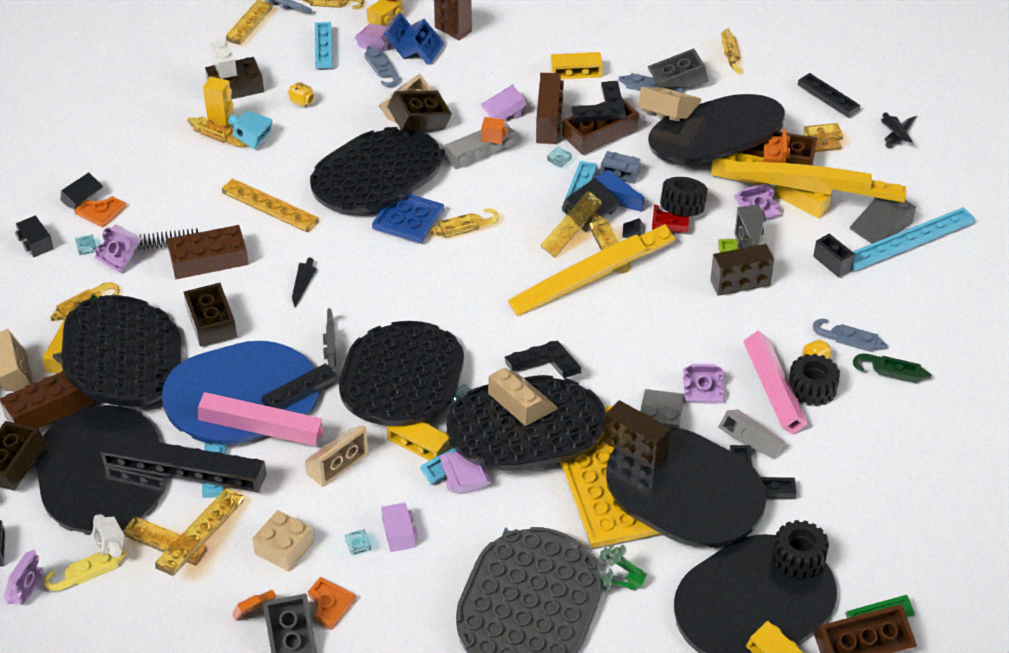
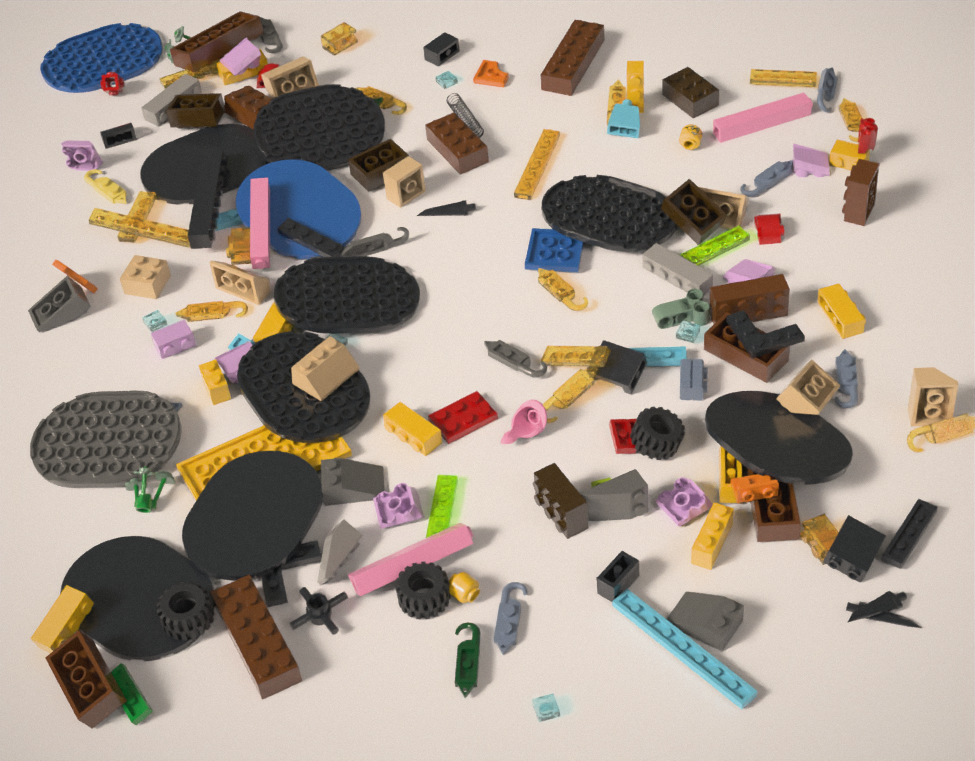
camera: 80 degrees right, 0 degrees up
(80, 190) = (504, 54): black brick -> none
(107, 535) = (129, 182): white piece -> none
(117, 247) = (442, 92): lavender slope -> none
(123, 143) = (572, 57): none -> reddish brown brick
(223, 59) = (690, 67): white brick -> none
(253, 297) = (404, 181): none -> tan brick
(274, 449) = (239, 246): none -> clear yellow brick
(299, 46) = (762, 117): none -> bright pink brick
(323, 45) = (775, 132): medium azure plate -> none
(331, 602) = (95, 324): orange tile -> none
(361, 493) = (210, 310): none -> clear yellow plate
(413, 38) = (810, 183): blue bracket -> none
(450, 78) = (769, 228): none -> red cylinder
(460, 117) = (716, 246): none -> clear neon green plate
(483, 497) = (214, 382): none -> yellow brick
(493, 130) = (683, 266): orange brick -> none
(533, 148) = (687, 309): none -> sand green piece
(542, 271) = (513, 358): none -> dark grey plate
(551, 352) = (403, 386): black plate -> none
(590, 269) = (526, 389): yellow slope -> none
(602, 322) = (463, 417): none -> red plate
(609, 356) = (412, 428): none -> yellow brick
(623, 192) = (655, 379): blue slope -> none
(632, 228) = (604, 413): black slope -> none
(635, 274) = (526, 422): none -> bright pink piece
(636, 434) = (284, 453): dark brown brick -> none
(680, 70) = (872, 392): dark grey slope -> none
(709, 36) = (931, 396): none -> tan slope
(711, 355) = (442, 504): none -> clear neon green plate
(814, 457) = (318, 610): none -> black bar
(815, 179) = (714, 533): yellow slope -> none
(838, 503) = (256, 637): none -> reddish brown brick
(843, 120) = (854, 549): none -> black panel
(952, 329) = (545, 707): none -> clear light blue plate

